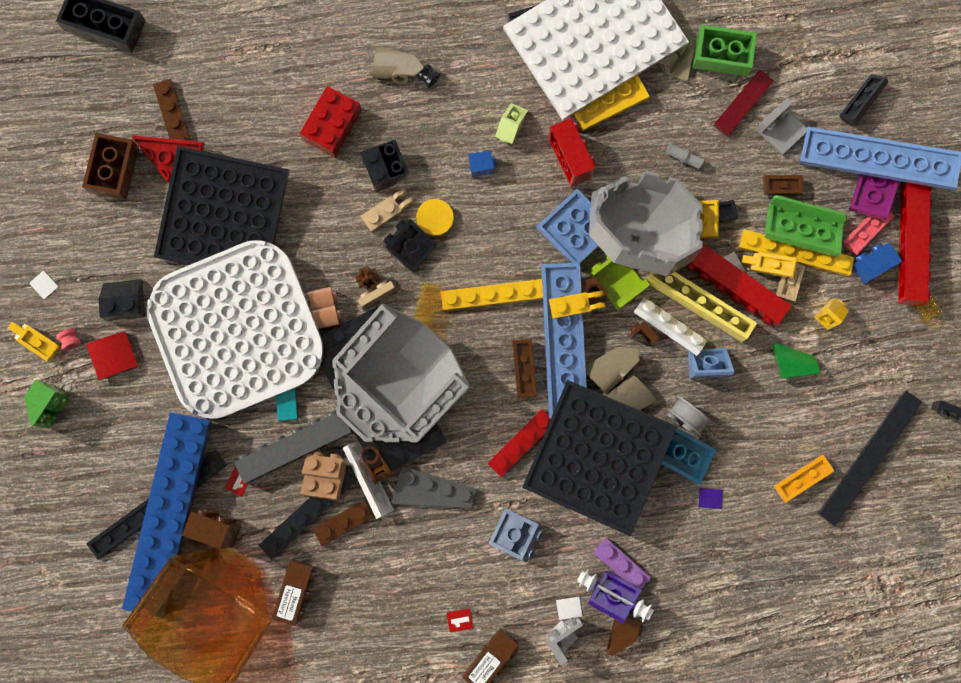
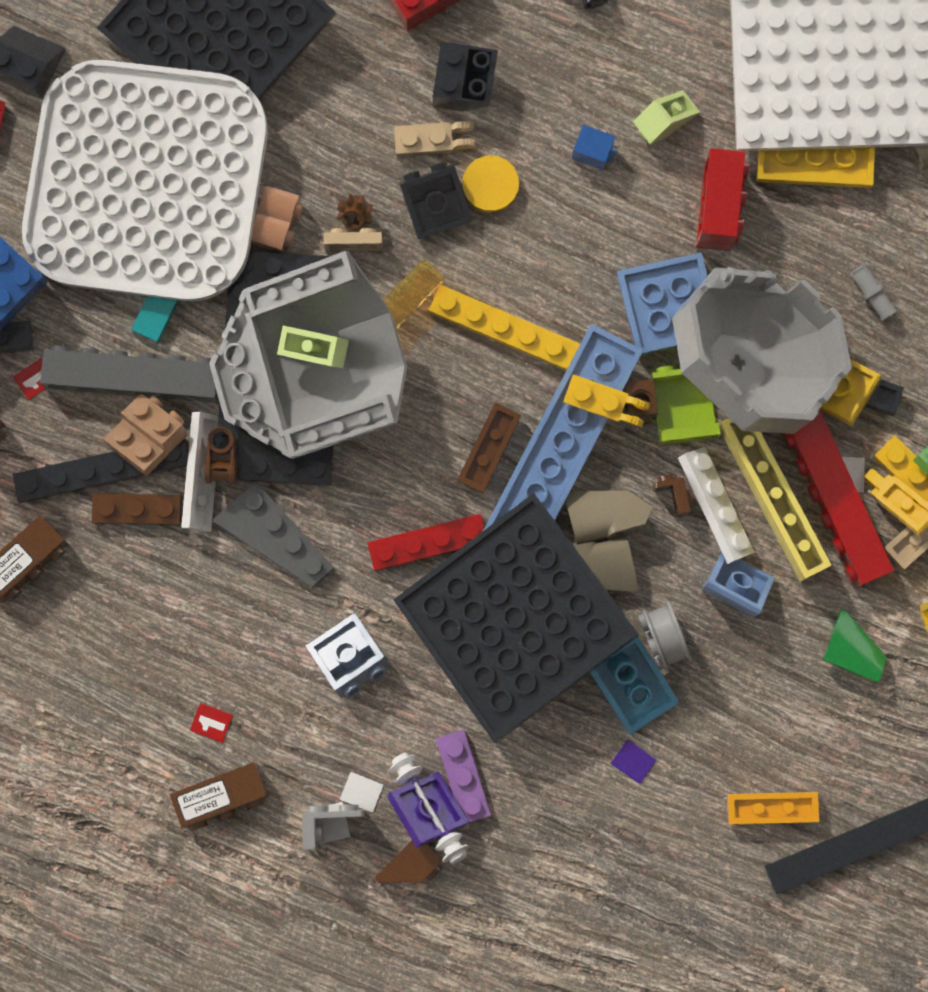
camera: 35 degrees right, 0 degrees up
(391, 370) = (313, 347): none -> yellowish green slope

